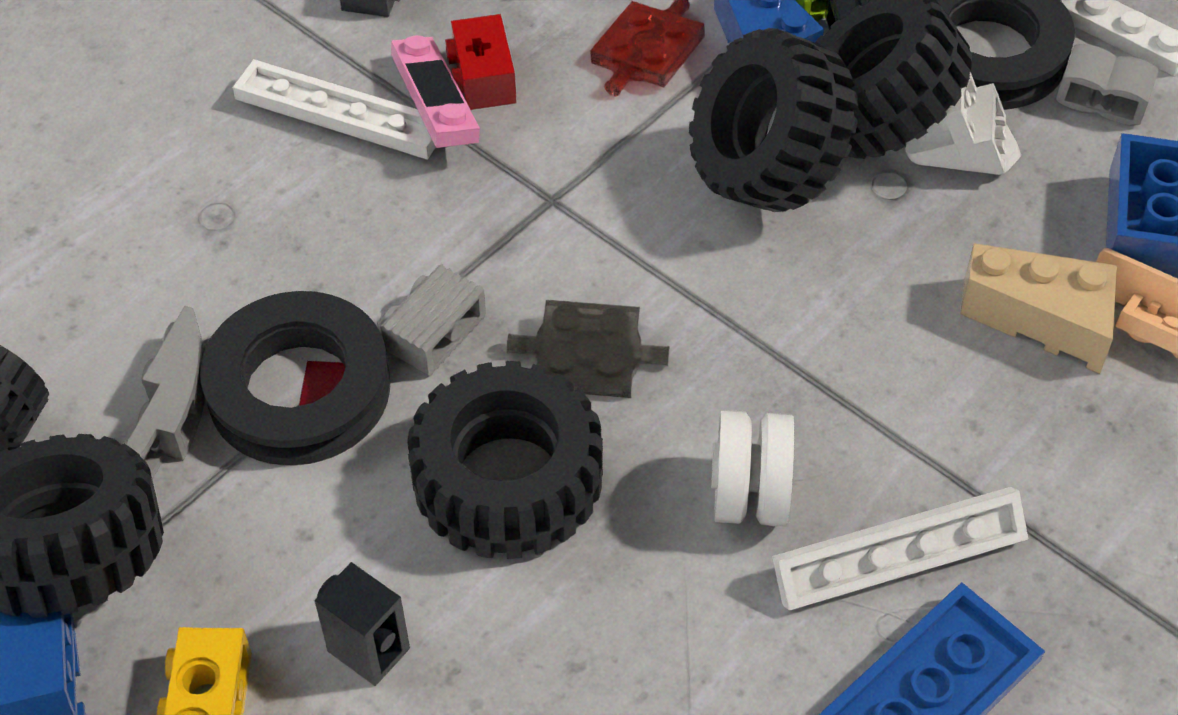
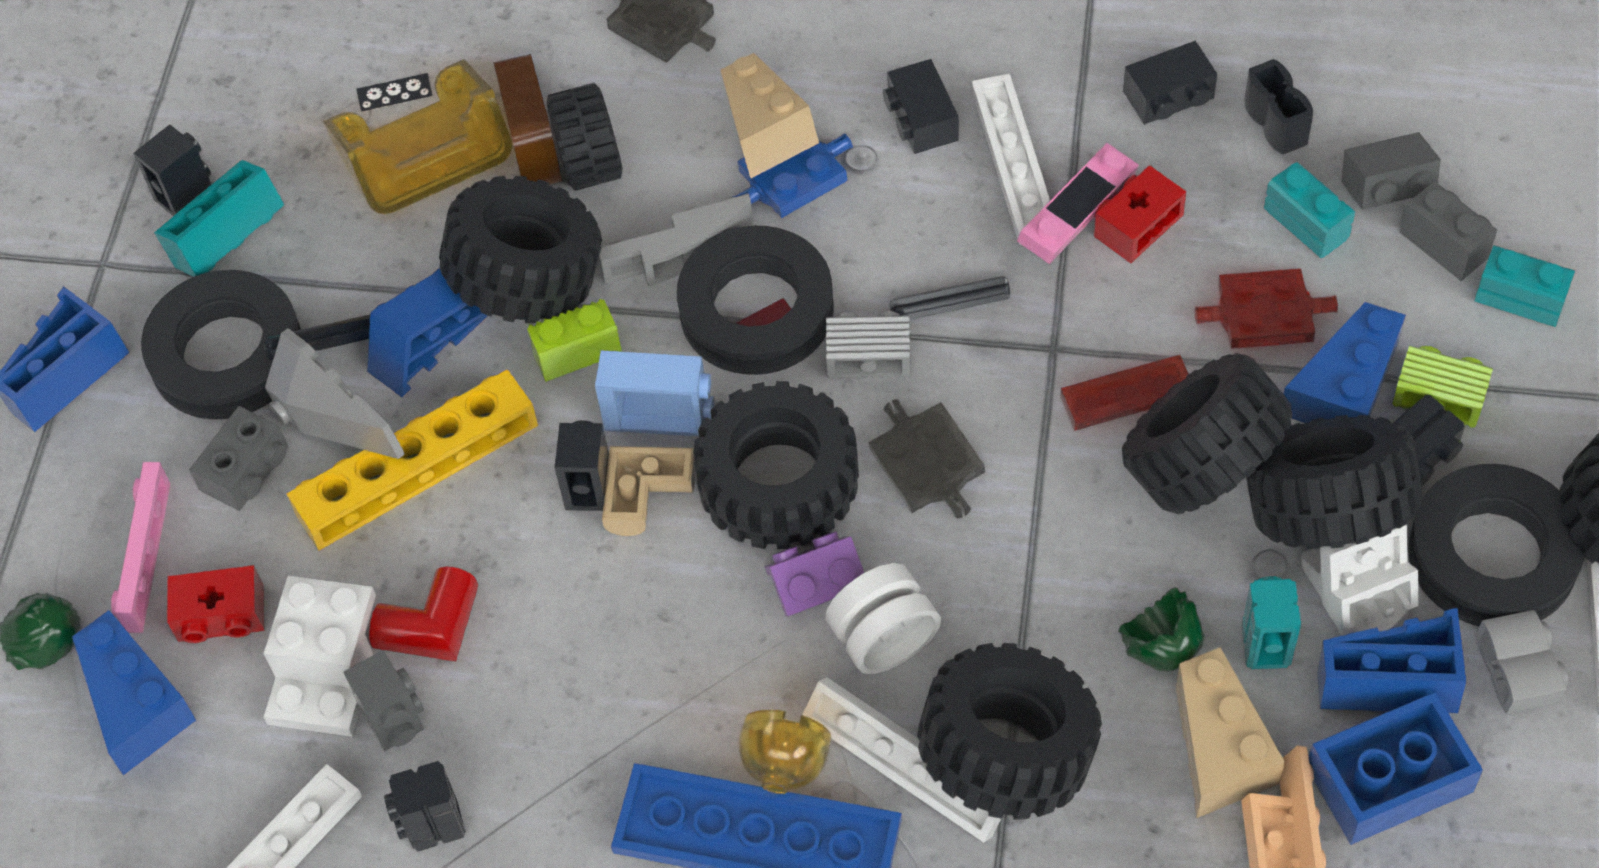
camera: 60 degrees right, 5 degrees up
(109, 239) = (767, 114): none -> tan wedge
(181, 268) = (799, 177): none -> blue plate
(195, 552) = (573, 339): none -> lime brick
(219, 135) = (922, 106): none -> black brick
(333, 512) = (653, 393): none -> light blue window
(412, 573) = (634, 474): none -> tan brick
(437, 235) = (952, 298): none -> black axle
(641, 503) = (815, 574): none -> medium lavender bracket
(649, 173) = (1121, 392): none -> clear red plate
(835, 637) = (783, 751): none -> clear yellow cylinder
(915, 279) = (1165, 632): none -> dark green hair
(956, 435) = (1000, 772): none -> black tyre
(970, 199) = (1271, 623): none -> teal brick
(1067, 152) = (1394, 666): none -> blue wedge

